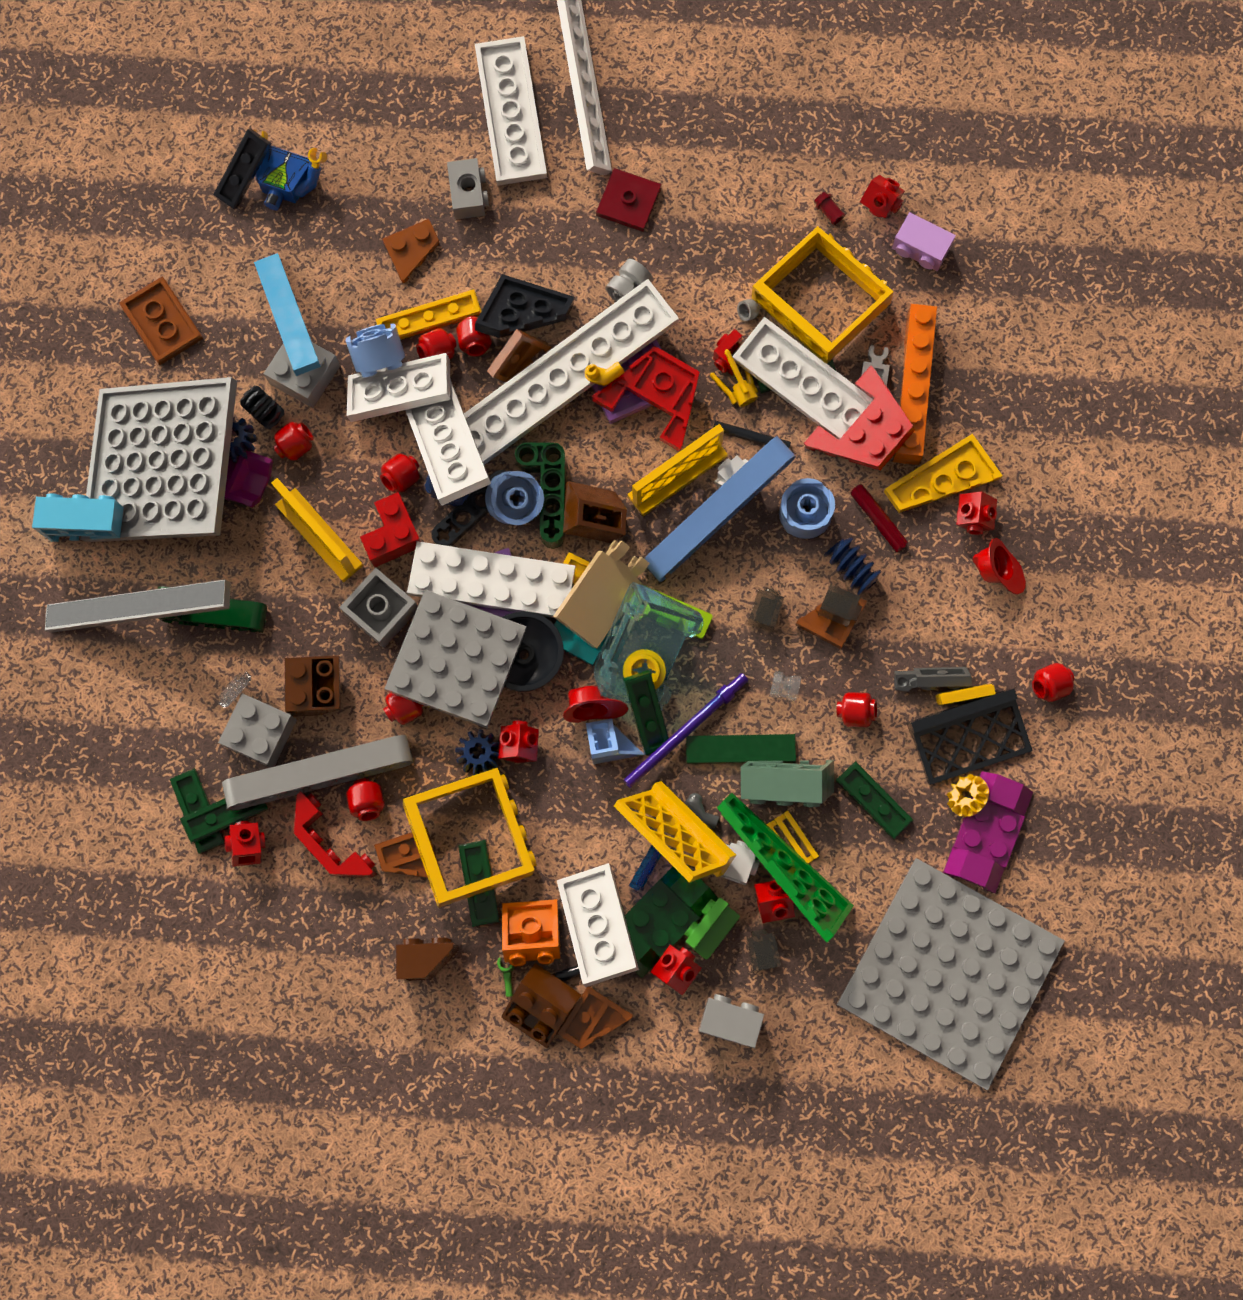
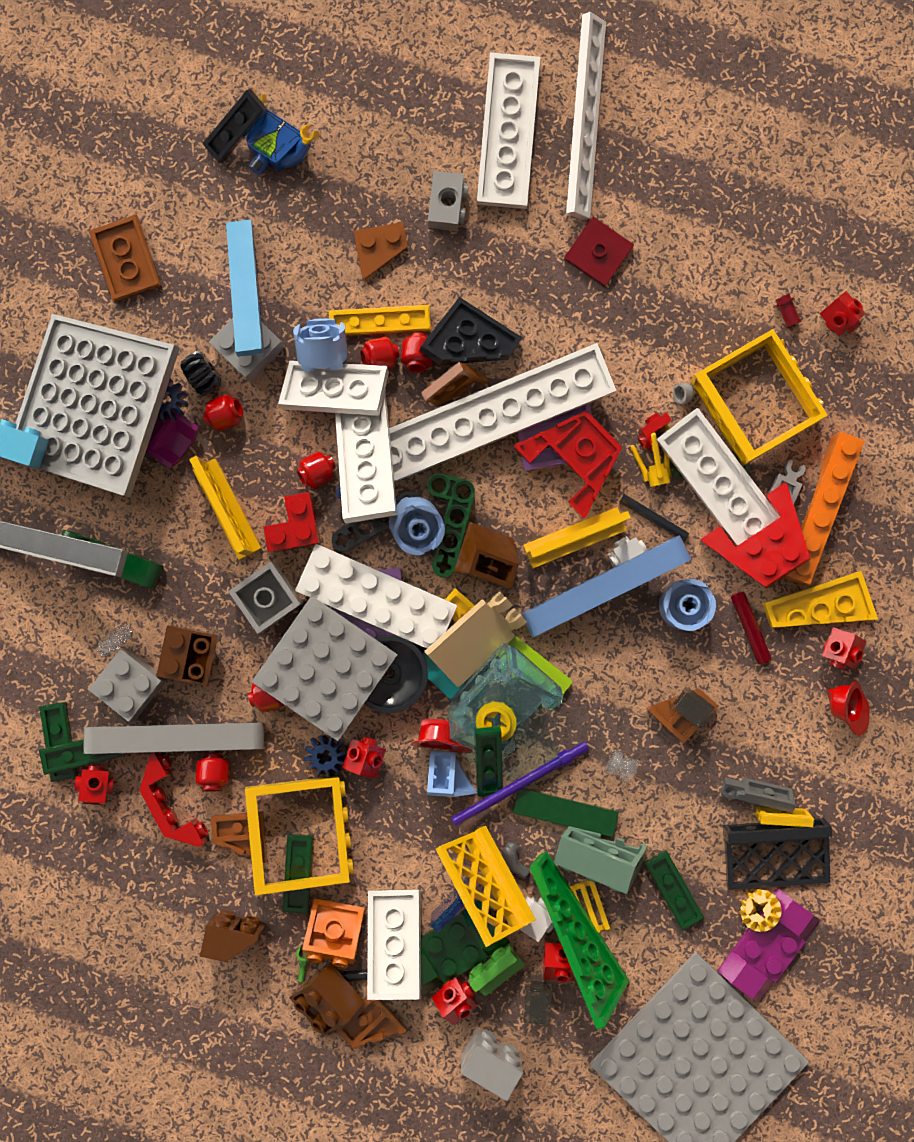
camera: 10 degrees right, 10 degrees up
(603, 376) = (529, 429): yellow arm -> none
(630, 276) = (581, 332): light grey wheel -> none
(766, 609) = (623, 689): clear smoke brick -> none
(853, 564) = (716, 669): dark blue piece -> none
(857, 709) = (681, 805): red head -> none
(923, 242) = (869, 370): lavender brick -> none
(1053, 682) = (868, 826): red head -> none

